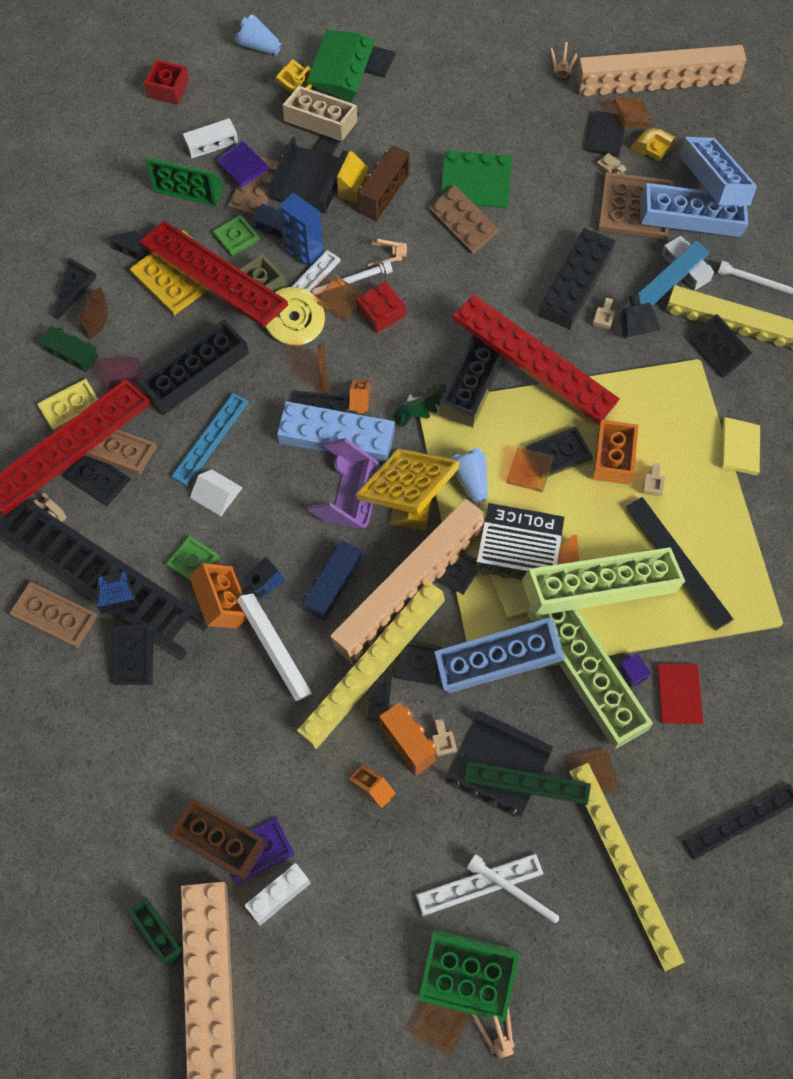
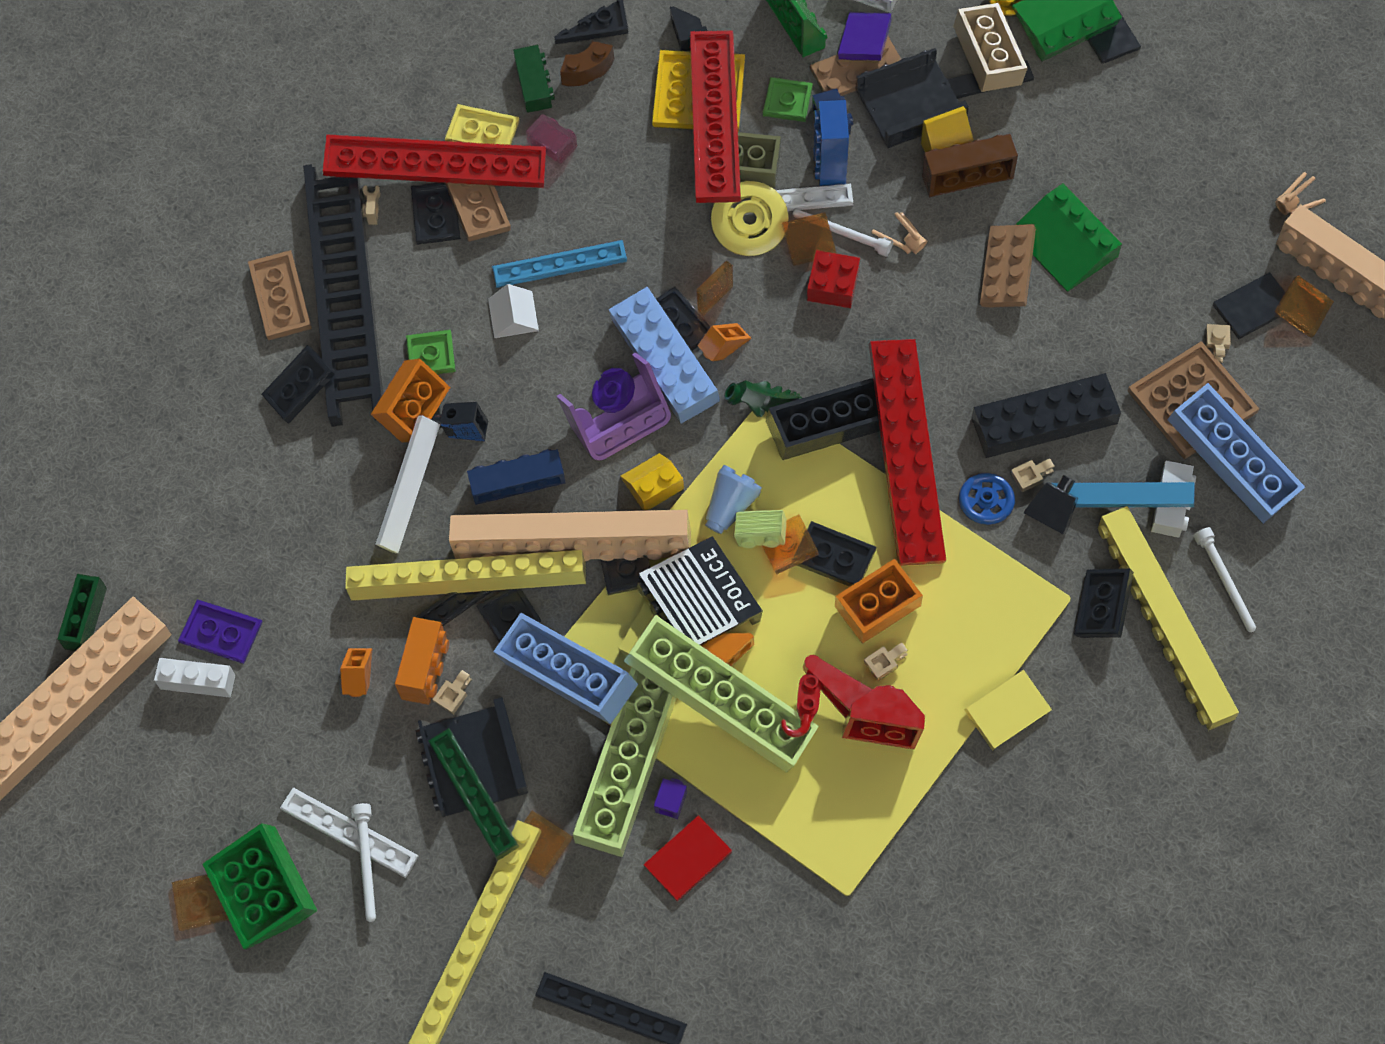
camera: 50 degrees right, 0 degrees up
(115, 591) = (335, 318): black torso -> none
(193, 367) = (612, 187): black brick -> none
(218, 839) = (198, 591): reddish brown brick -> none
(330, 479) = (613, 390): none -> dark purple tile
(408, 480) = (667, 451): yellow plate -> none
(502, 1045) = (221, 963): light nougat plant -> none
(509, 473) = (760, 528): none -> yellowish green brick
(590, 361) = (986, 516): none -> blue plate
(654, 143) = (1288, 357): yellow brick -> none
(686, 515) = (870, 715): none -> red slope
(694, 582) = (816, 766): black tile -> none
(717, 171) = (1299, 435): light blue brick -> none

